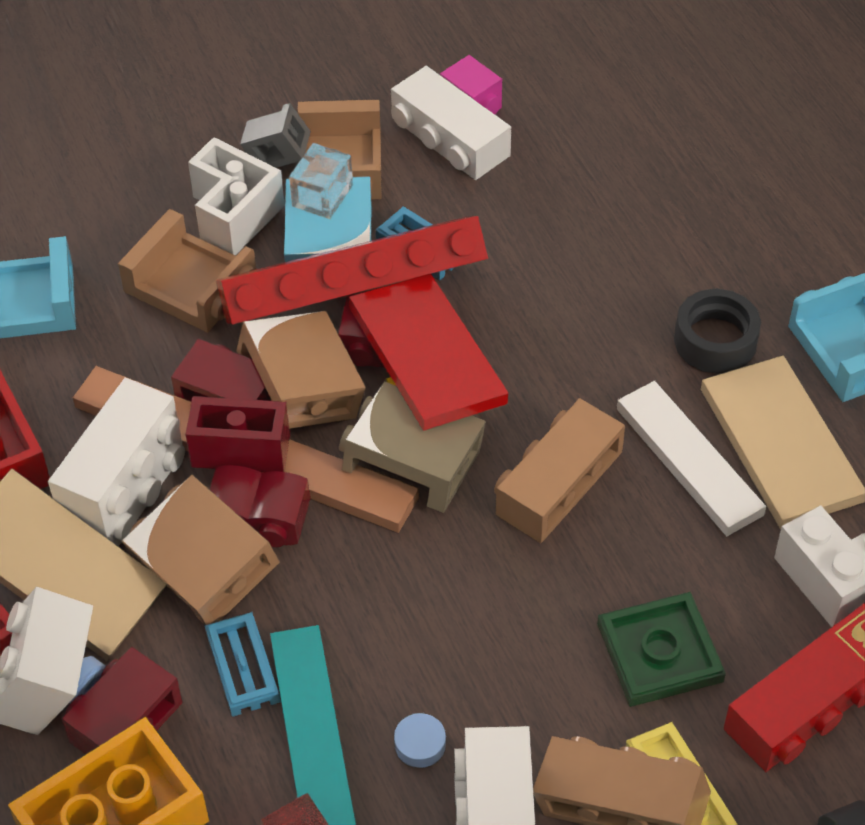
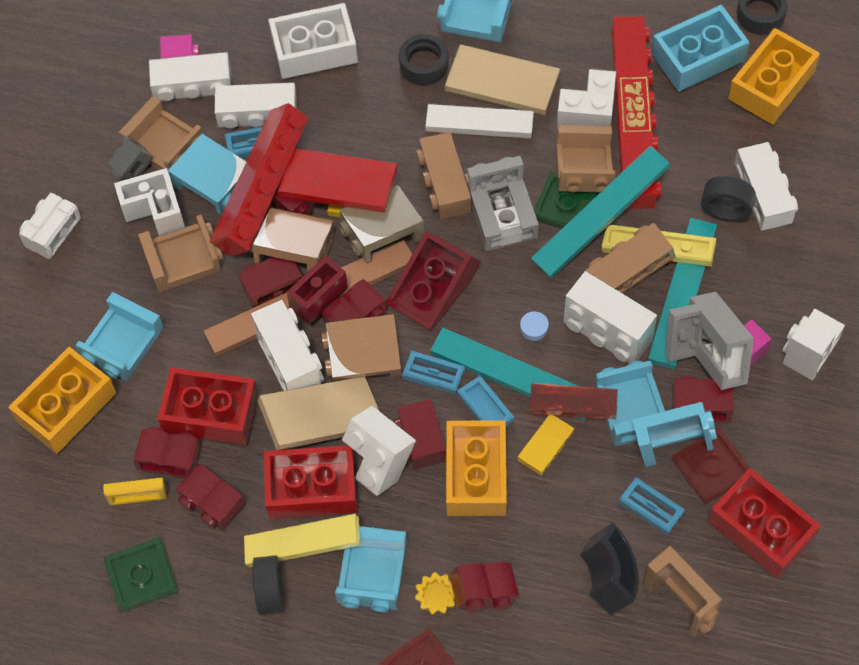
camera: 50 degrees left, 10 degrees up
(120, 130) = (49, 225): none -> white brick
(239, 764) = (484, 402): none -> dark azure tile
(321, 180) = (192, 154): clear brick -> none
(385, 562) = (432, 280): none -> dark red slope
(455, 189) = (250, 103): none -> white brick
(599, 535) = (494, 185): none -> light grey brick
(618, 198) = (313, 40): none -> white brick
(676, 693) = (600, 212): none -> teal tile
(746, 618) = (584, 158): none -> medium nougat panel

